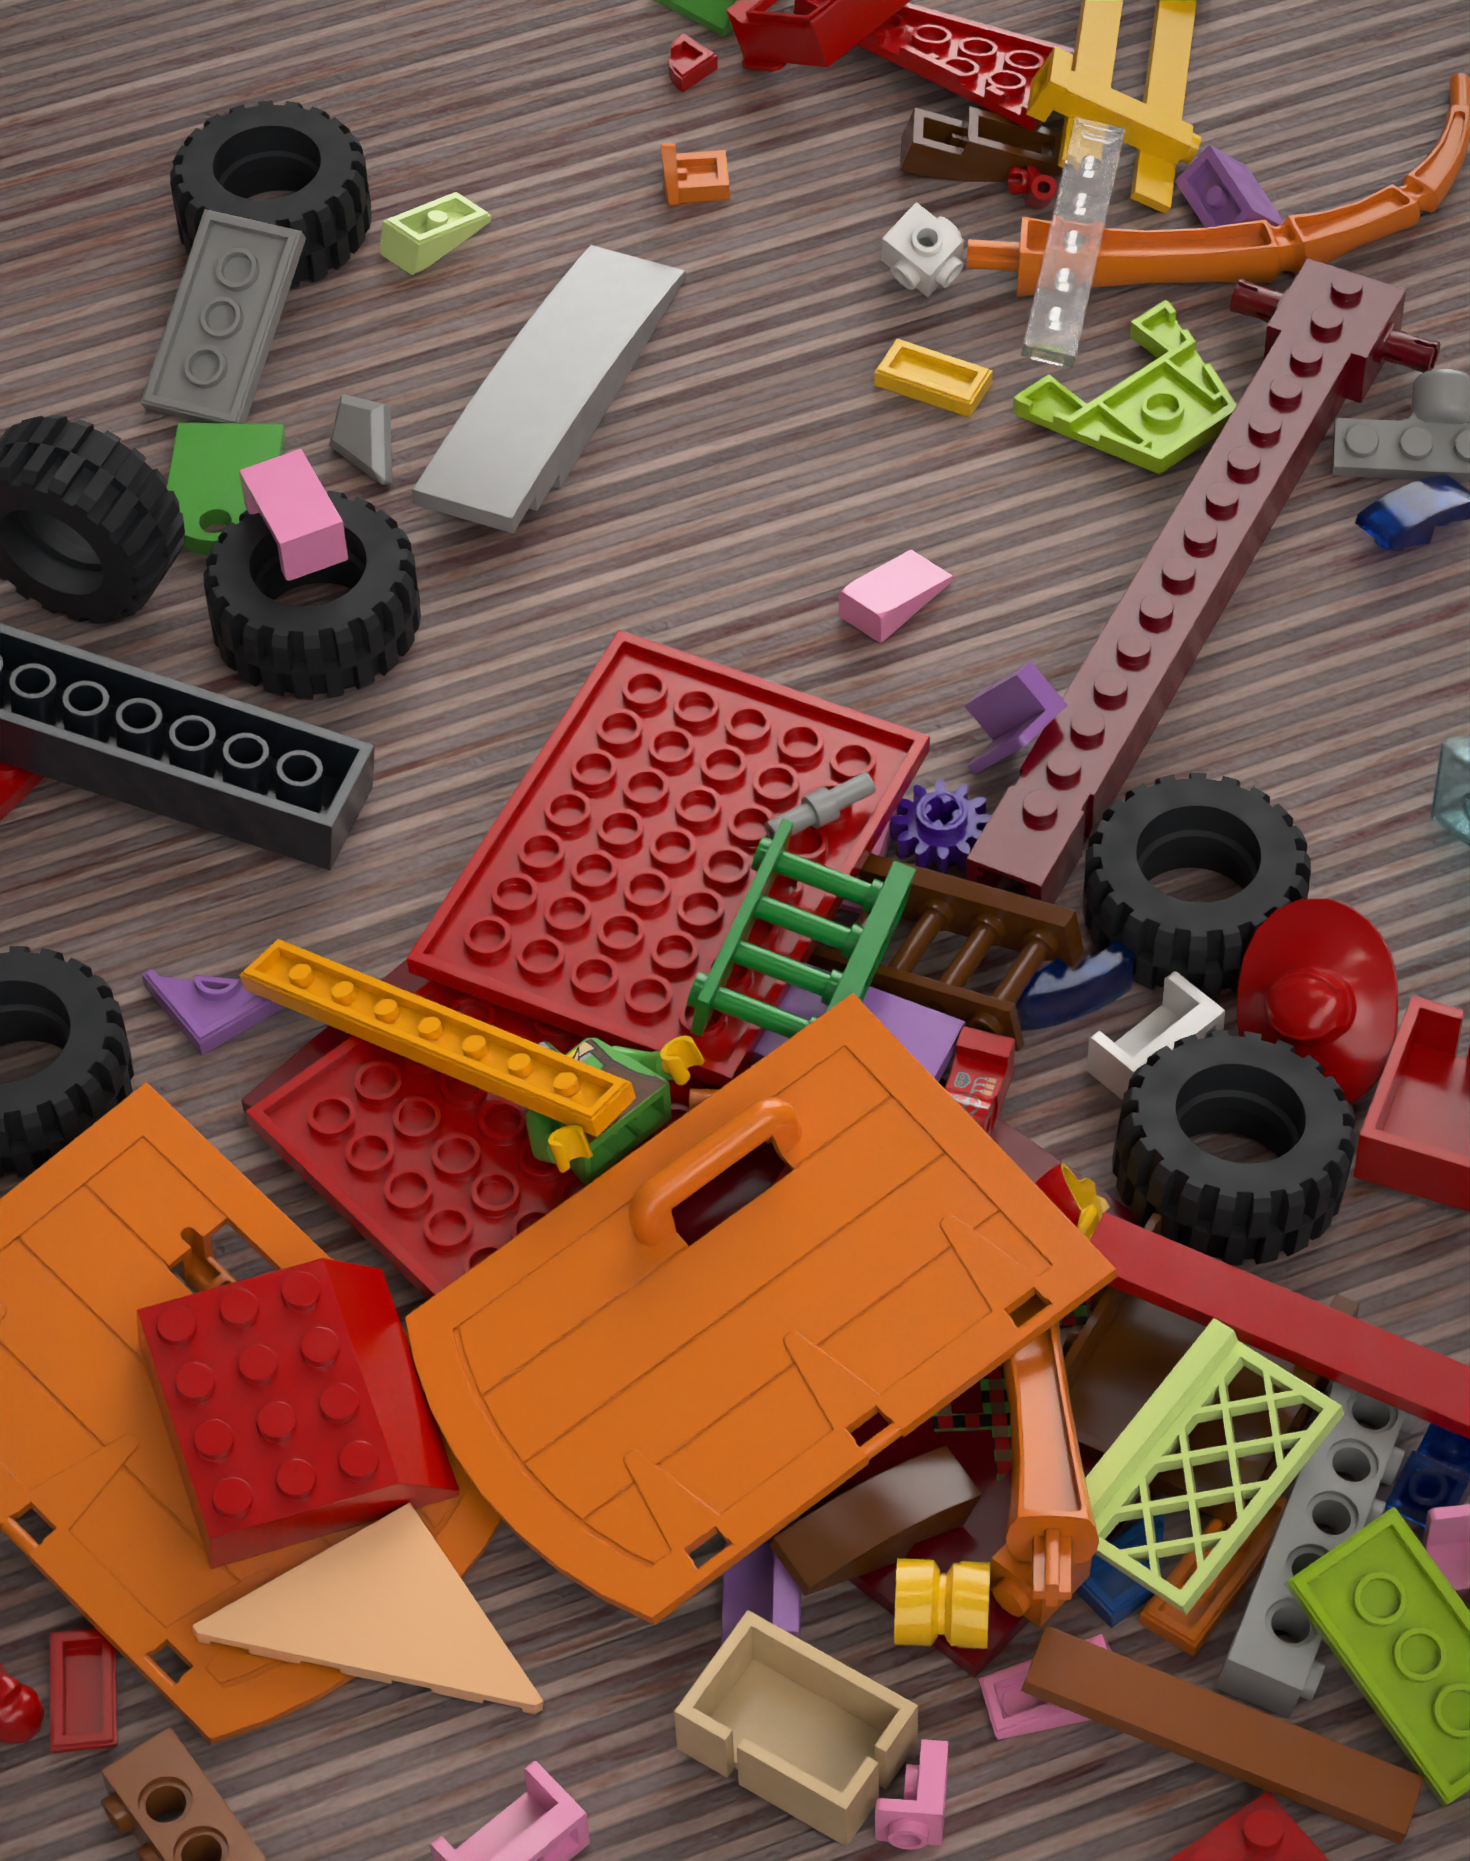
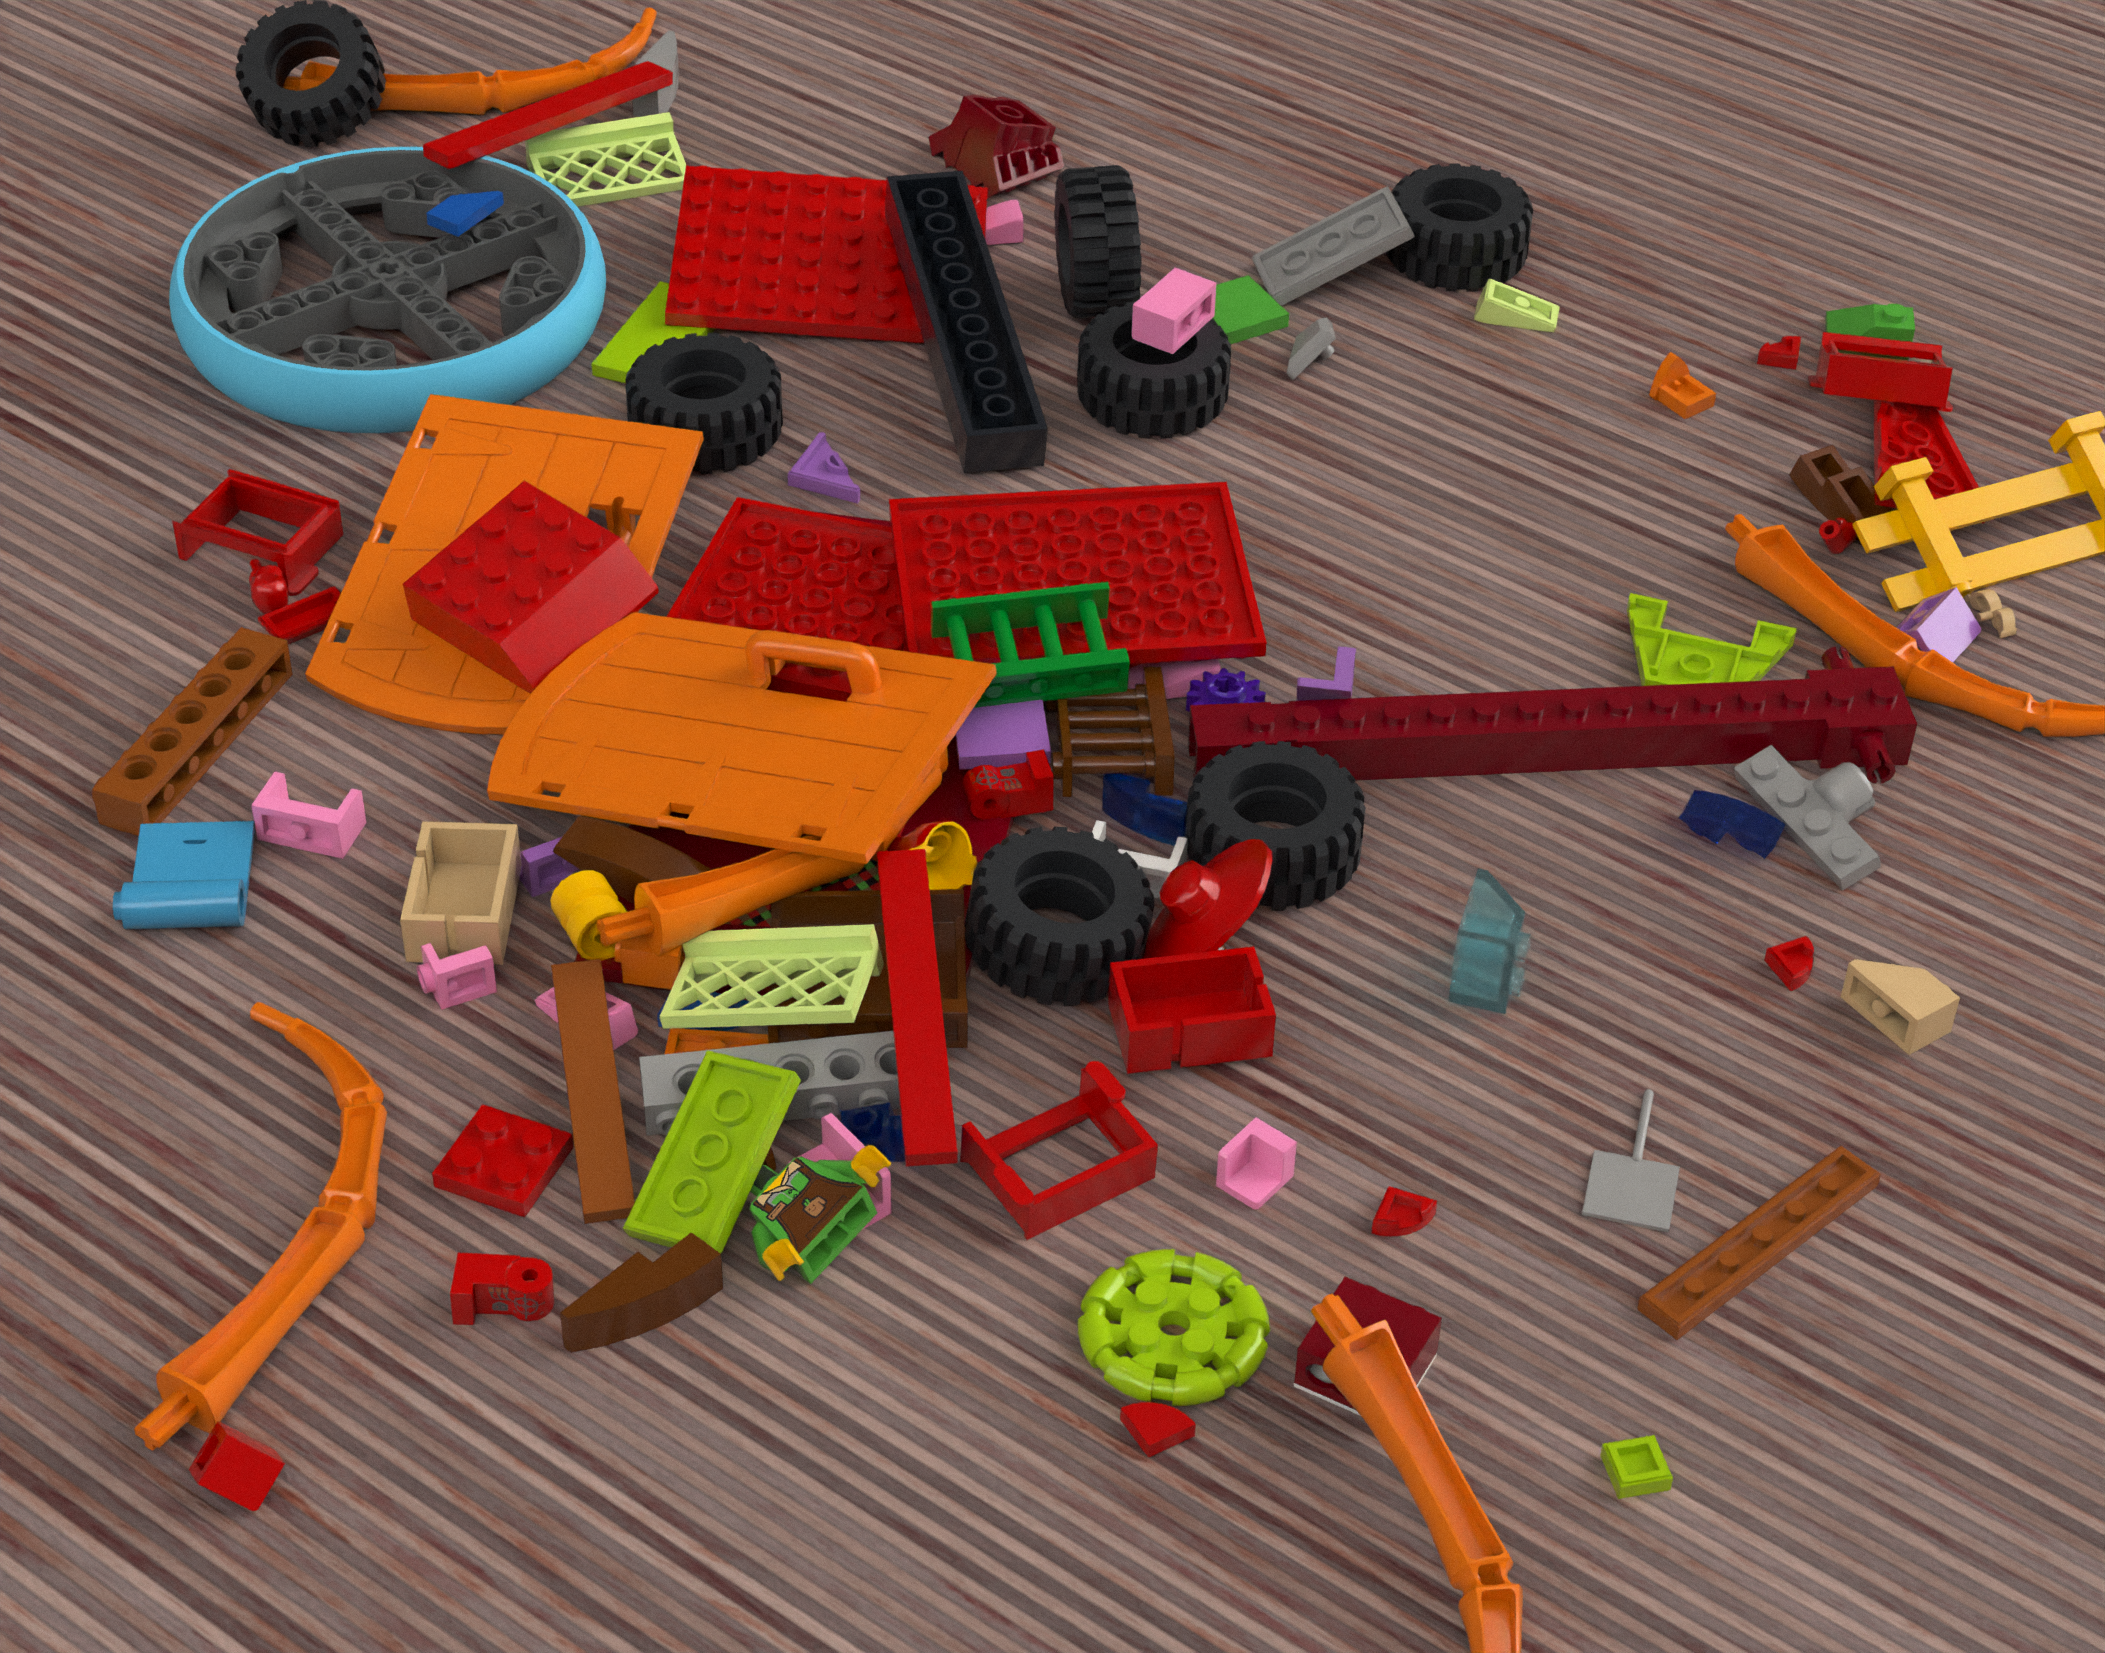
camera: 55 degrees right, 10 degrees down
(381, 1612) = (430, 700): light nougat tile -> none
(439, 1037) = (837, 534): light orange tile -> none
(548, 390) = (1426, 400): slope -> none
(649, 1074) = (838, 609): torso -> none
(824, 805) = (1153, 611): light grey bar -> none
(891, 594) = (1410, 611): bright pink slope -> none
(923, 250) = (1712, 500): white brick -> none
(933, 378) = (1620, 560): yellow tile -> none
(1073, 243) = (1782, 552): clear tile -> none
(1245, 141) = (1991, 608): none -> tan piece

